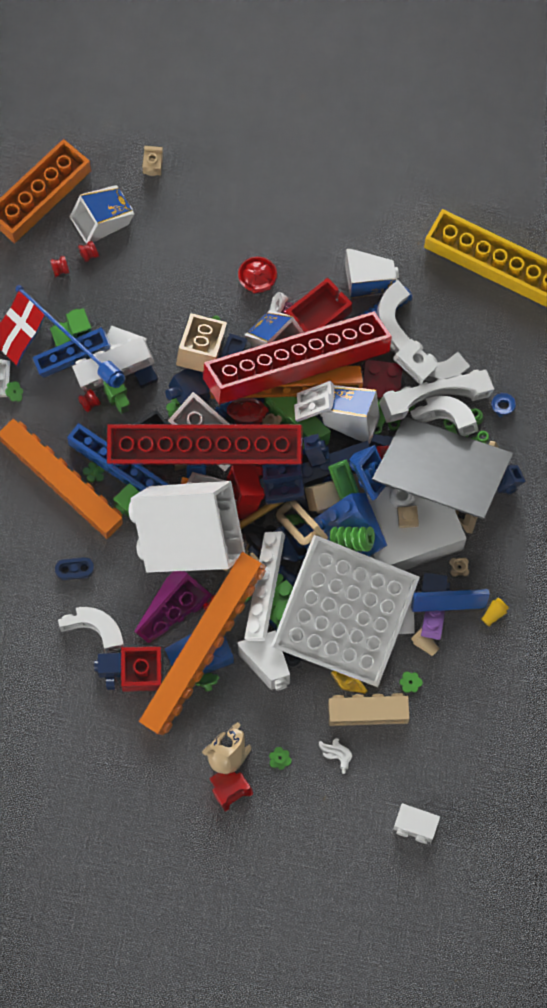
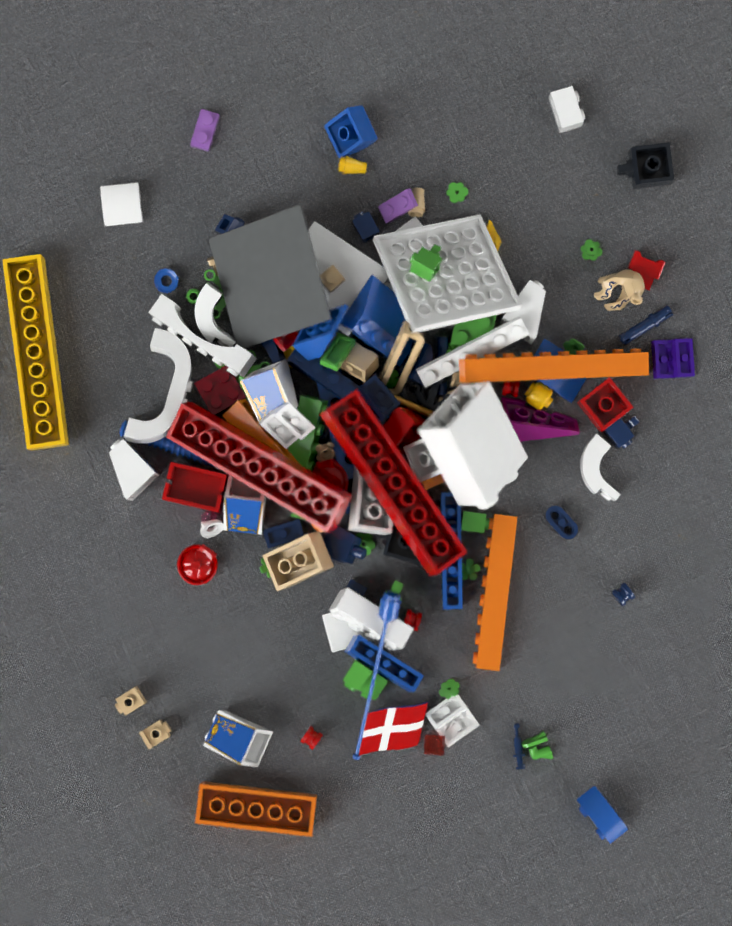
camera: 120 degrees left, 15 degrees up
(88, 251) = (280, 724): red wheel -> none
(137, 757) = (672, 358): none -> dark purple slope
(181, 763) = (651, 321): none -> dark blue pin
(188, 622) = (539, 395): none -> yellow head
(191, 160) = (135, 696): none -> tan brick
(313, 843) = (638, 169): none -> black hinge
(316, 450) = (328, 392): dark blue brick -> none
(337, 751) = (553, 209): white piece -> none
(354, 539) = (391, 304): bright green piece -> none
(363, 595) = (426, 262): none -> bright green brick
(368, 710) = (505, 207): tan brick -> none
(418, 371) = (186, 381): white brick -> none
(450, 600) = (370, 204): blue tile -> none
(463, 562) = (333, 215): tan plate -> none
(524, 631) = (350, 131): none -> blue slope

